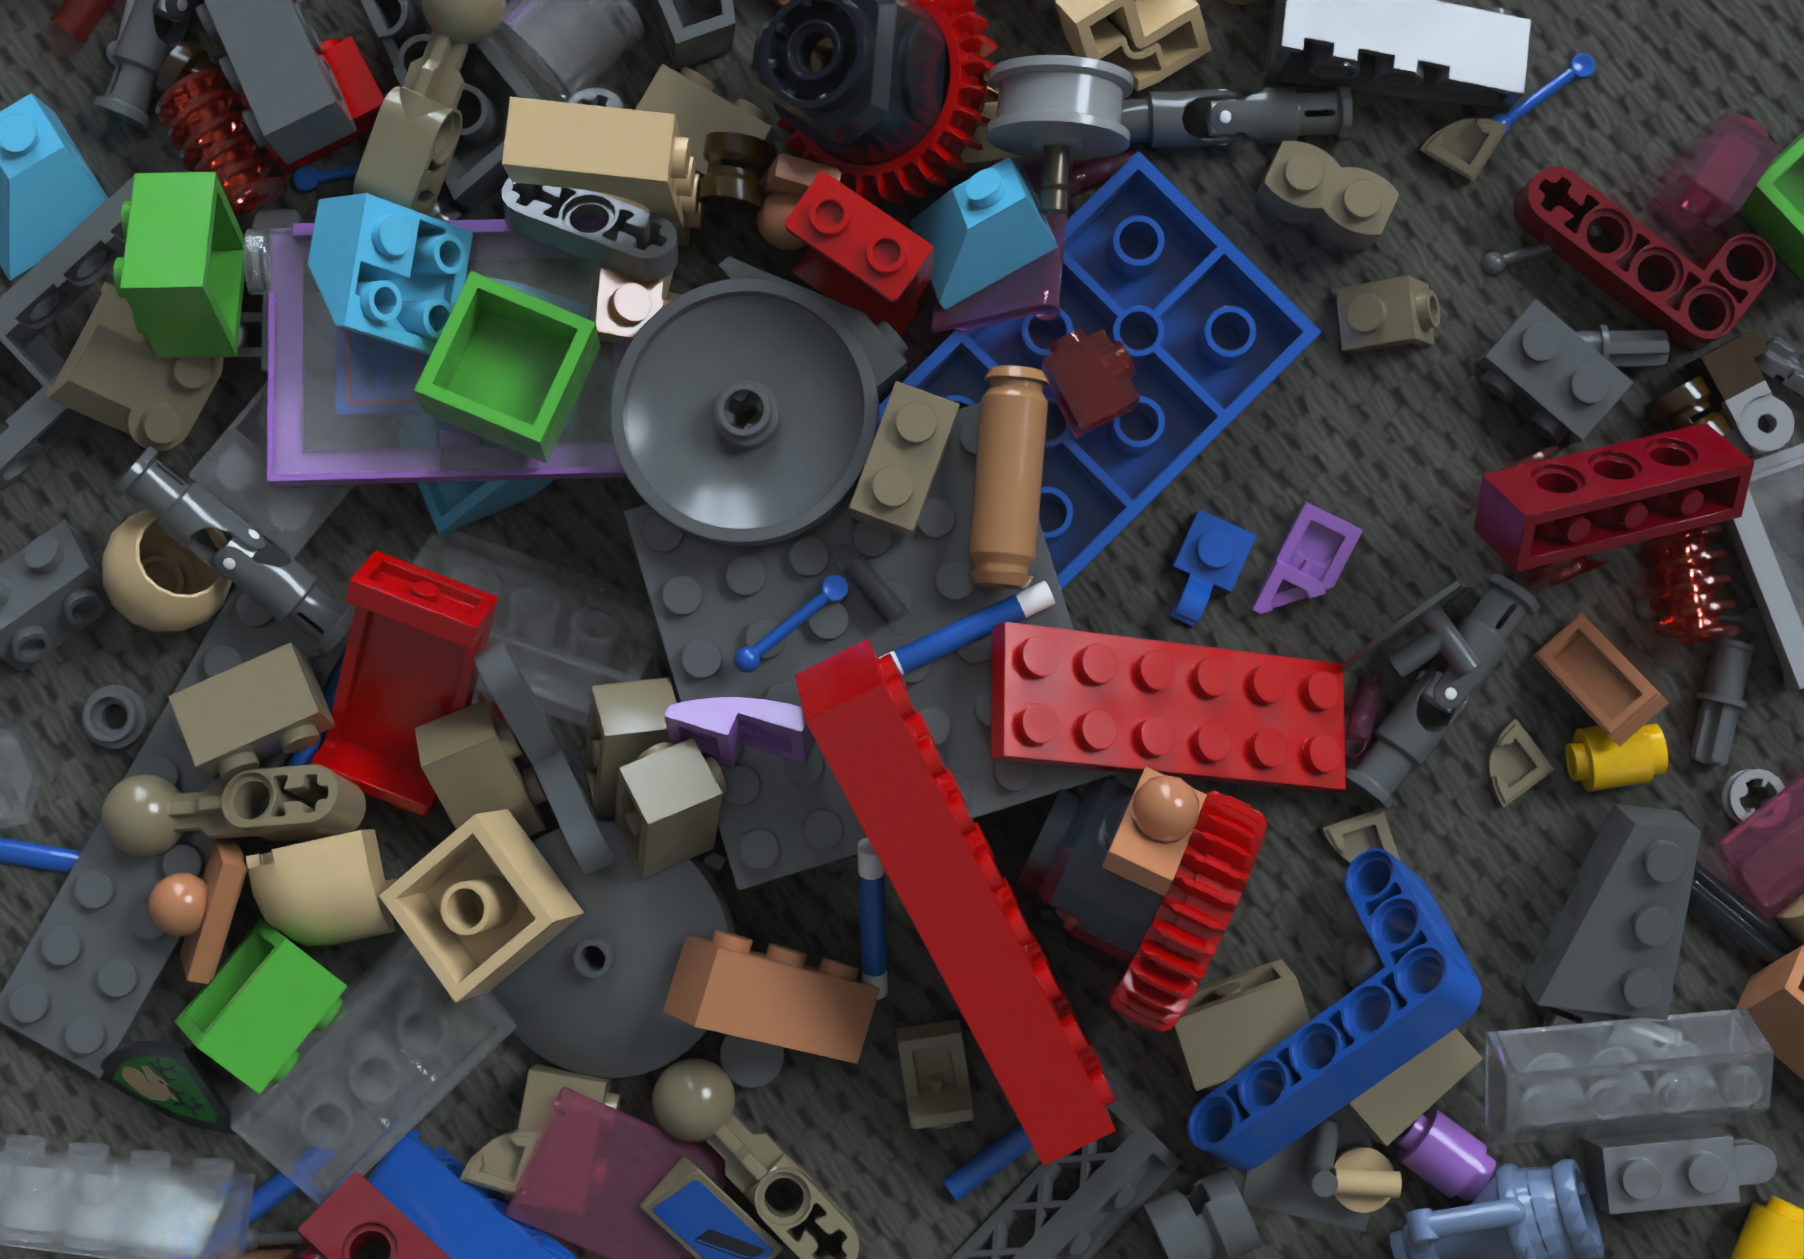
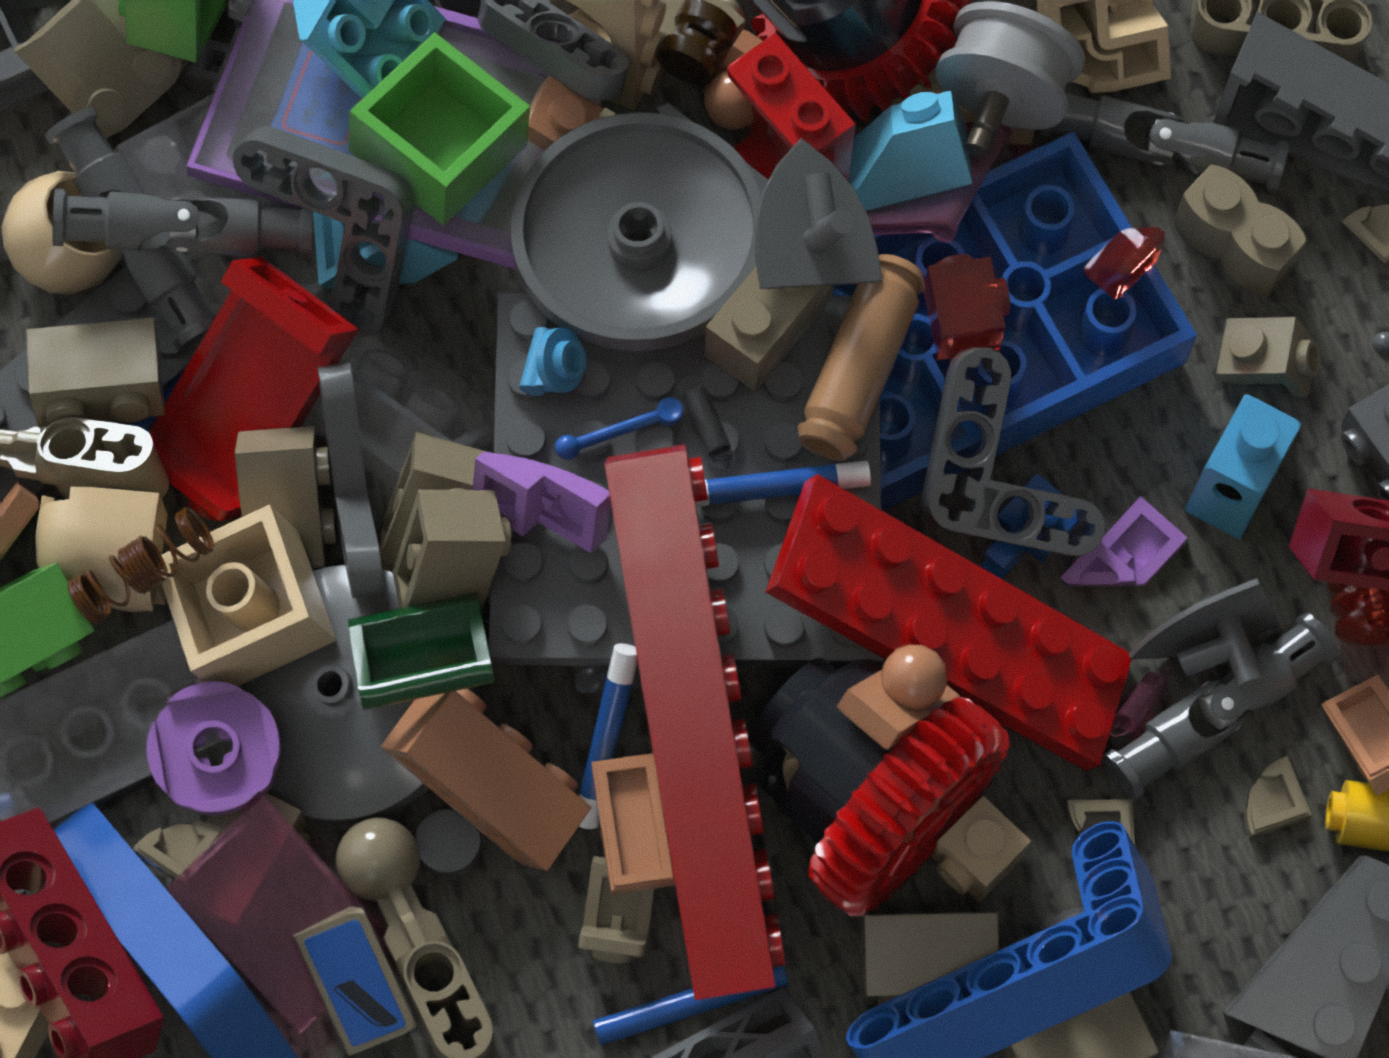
camera: 20 degrees right, 15 degrees down
(240, 559) = (151, 222): none -> dark grey piece
(347, 459) = (351, 204): none -> dark grey beam
(370, 914) = (141, 564): none -> reddish brown piece
(494, 1096) = (183, 728): none -> medium lavender plate
(664, 900) = (420, 651): none -> dark green tile
(704, 576) = (553, 362): none -> dark azure plate
(923, 370) = (812, 226): none -> dark grey shield
(923, 1001) = (632, 824): none -> nougat tile
(1163, 559) = (982, 493): none -> dark grey beam
(1229, 277) = (1125, 259): none -> clear red slope
(1263, 914) = (979, 850): none -> tan brick
(1399, 443) = (1245, 460): none -> dark azure torso

